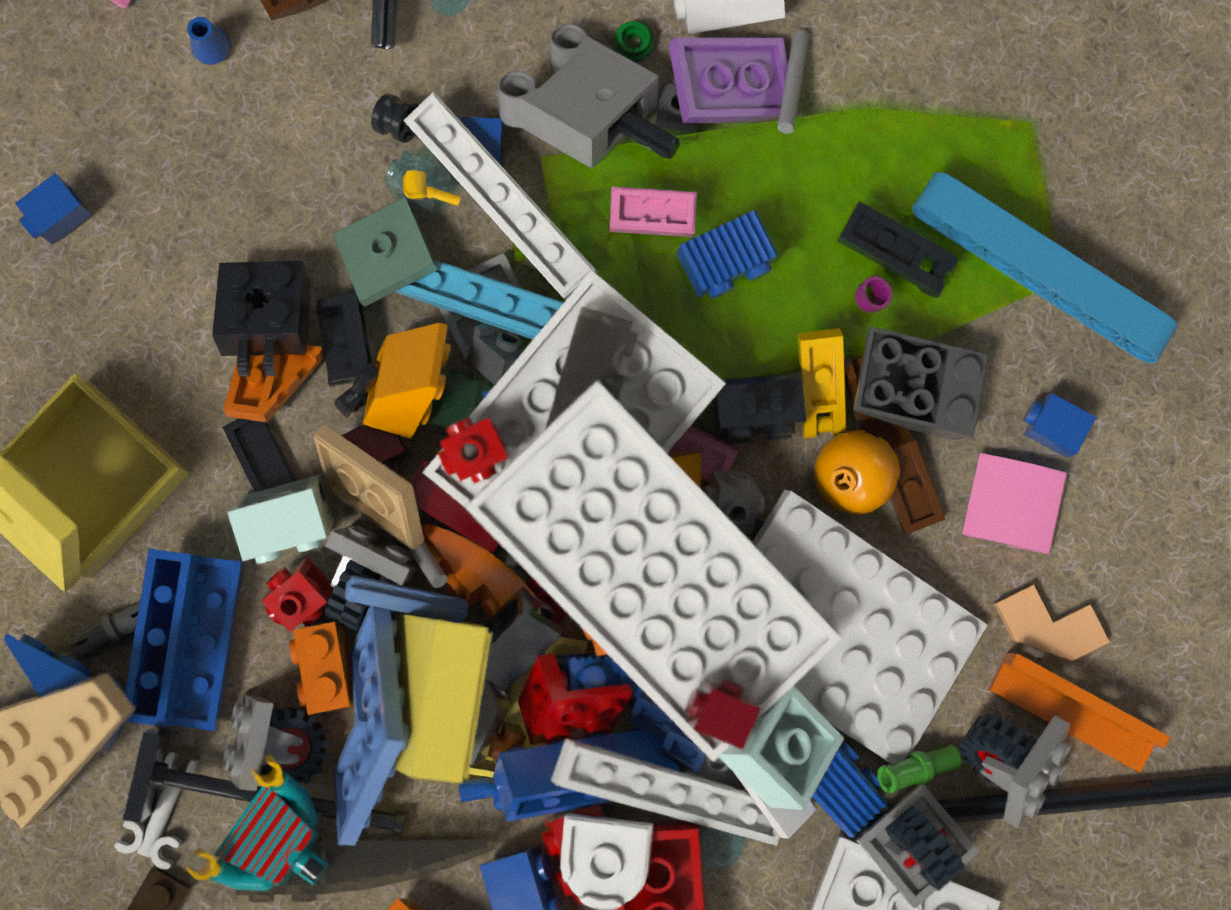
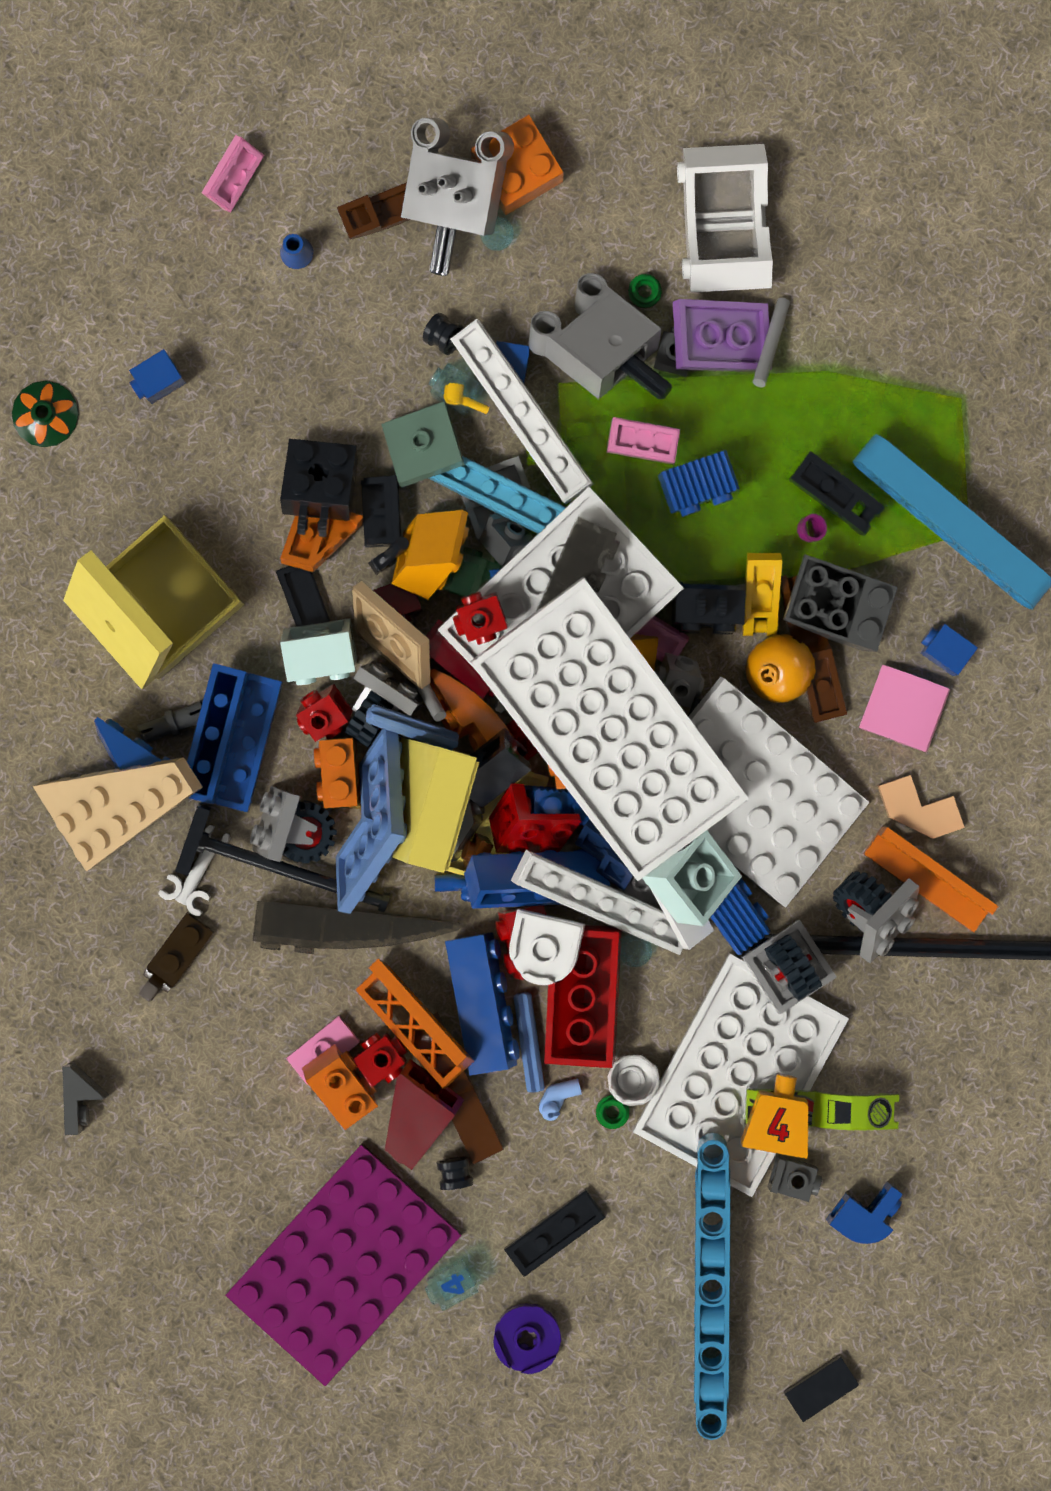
camera: 10 degrees right, 5 degrees up
(268, 839) = (285, 900): torso -> none
(722, 712) = (649, 843): dark red brick -> none
(919, 768) = (799, 907): bright green pin -> none

